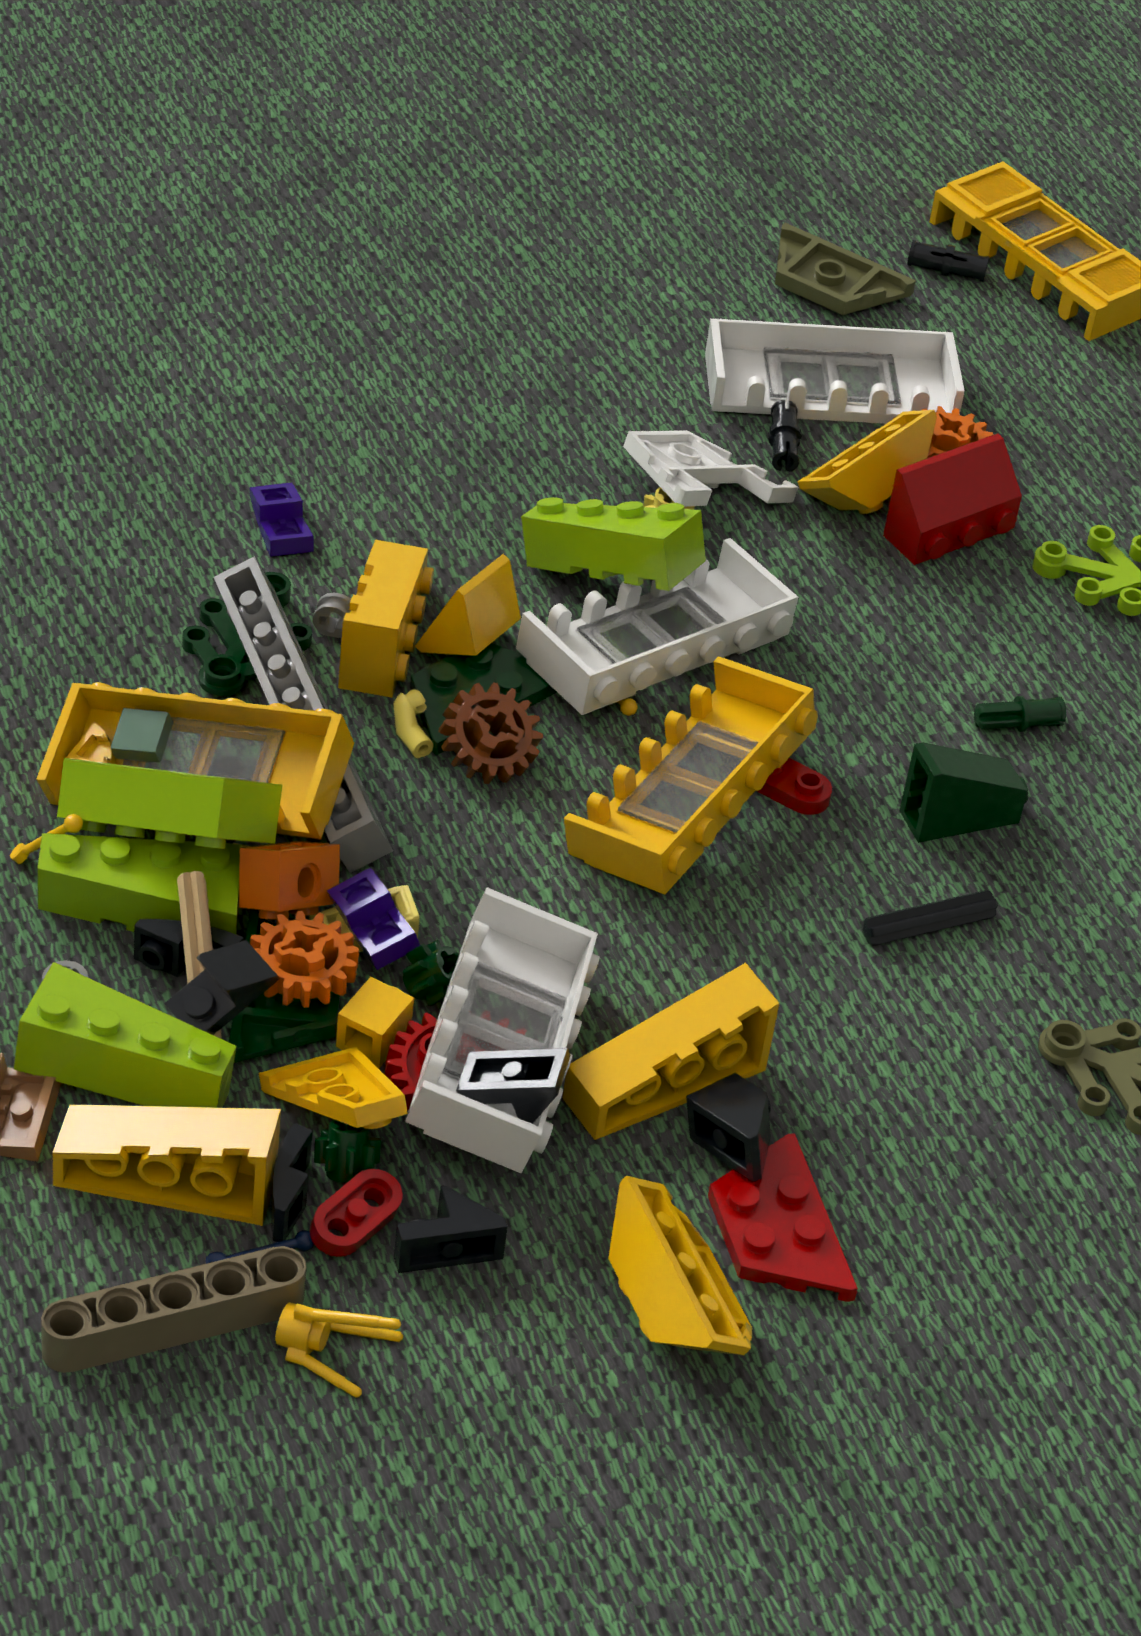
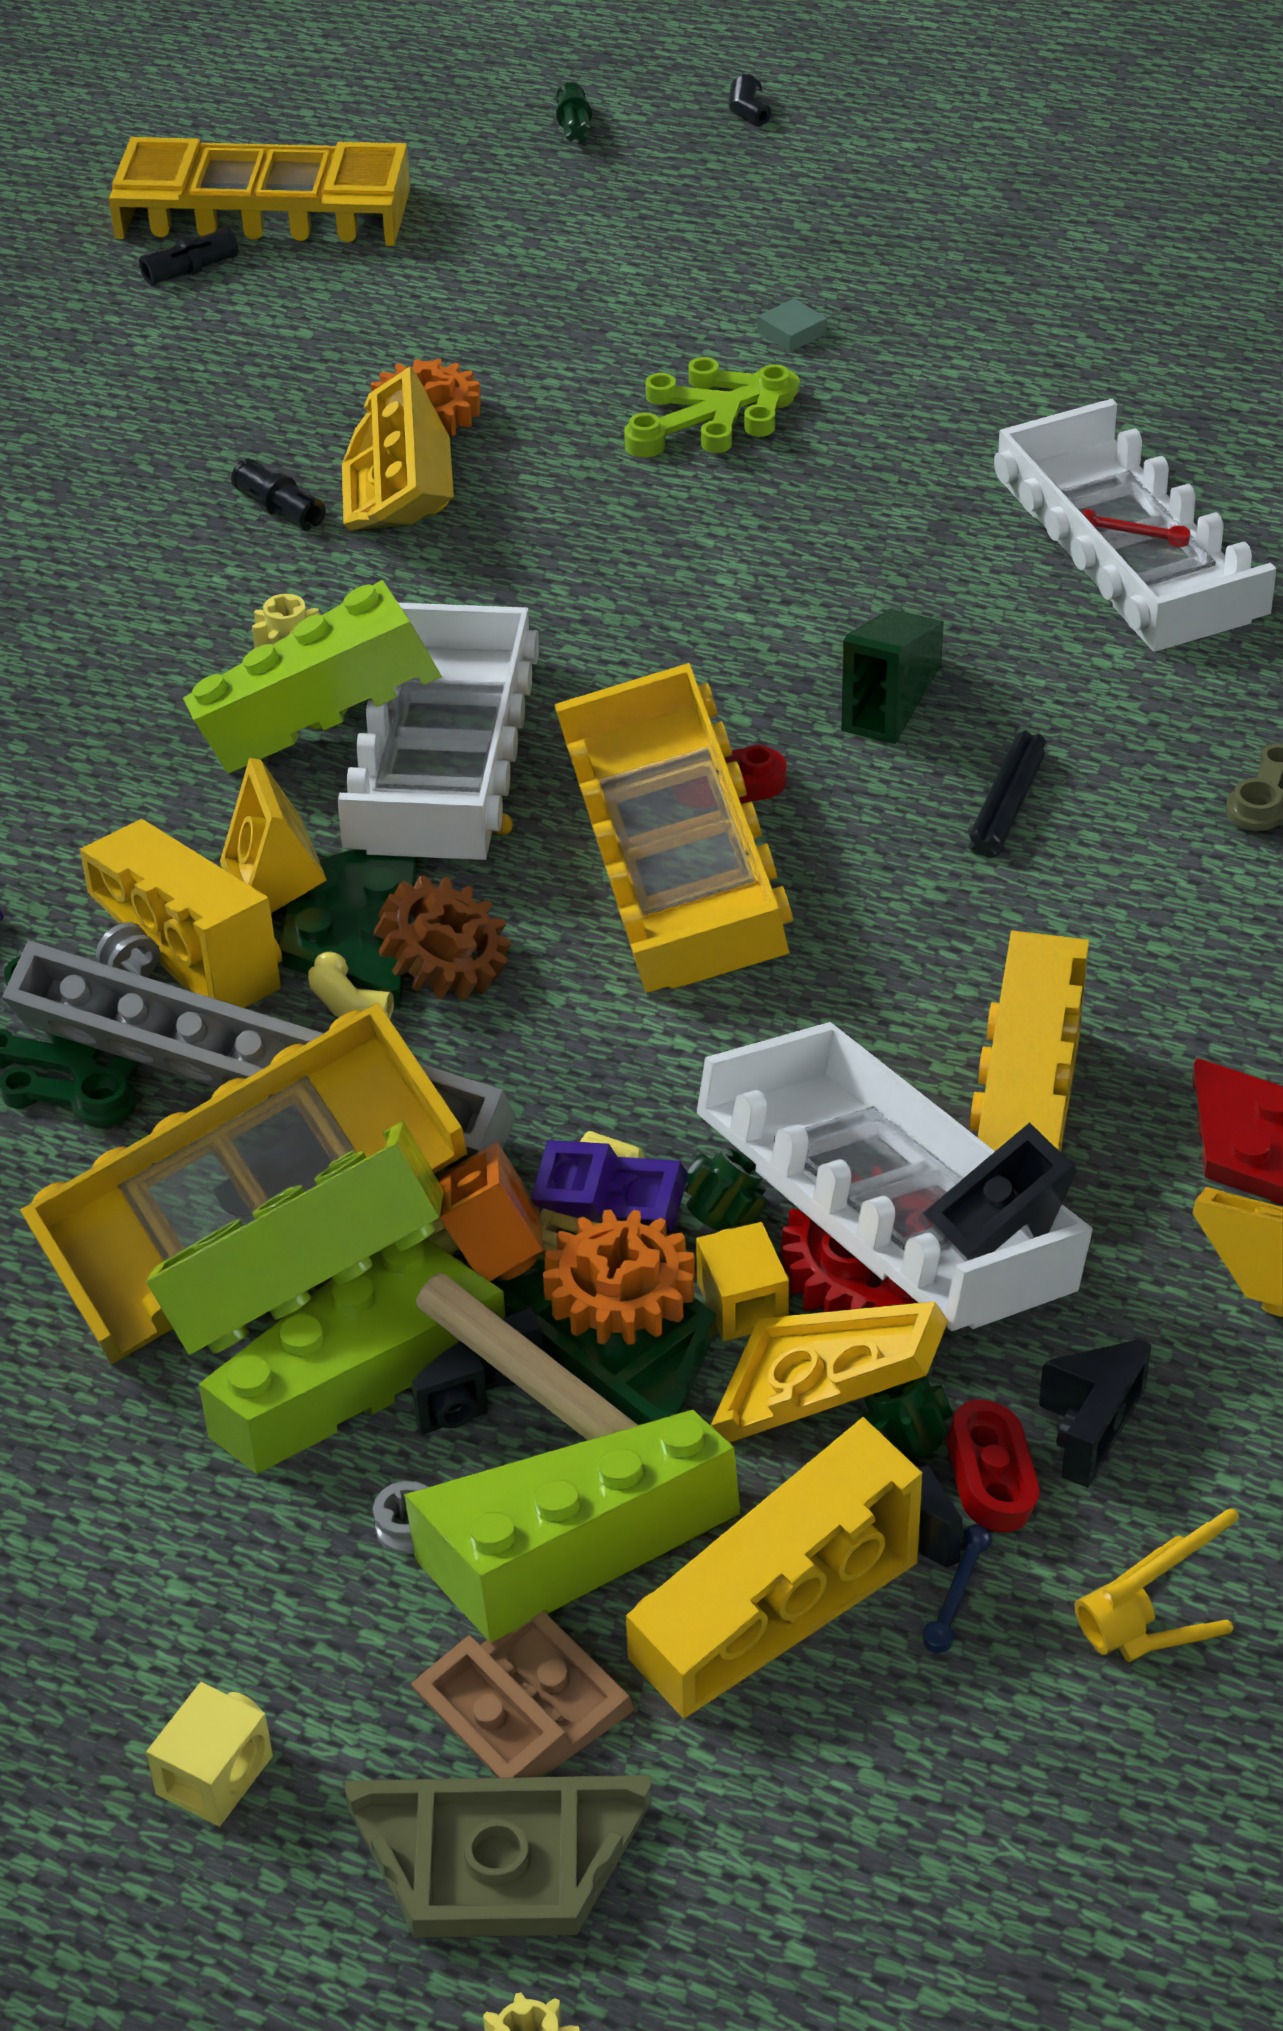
camera: 40 degrees left, 0 degrees up
(72, 823) = (165, 1434): yellow hinge -> none
(93, 747) = (115, 1269): yellow tile -> none
(141, 735) = (154, 1204): sand green tile -> none
(171, 1309) = (1022, 1616): dark tan beam -> none
(225, 987) = (602, 1369): black slope -> none
(691, 465) = (259, 573): white wing -> none
(732, 1123) = (1165, 1089): black slope -> none
(830, 370) = (244, 403): white window -> none
(835, 275) = (107, 332): olive wing -> none
(953, 500) = (520, 440): red slope -> none
(1020, 713) = (817, 573): dark green axle -> none

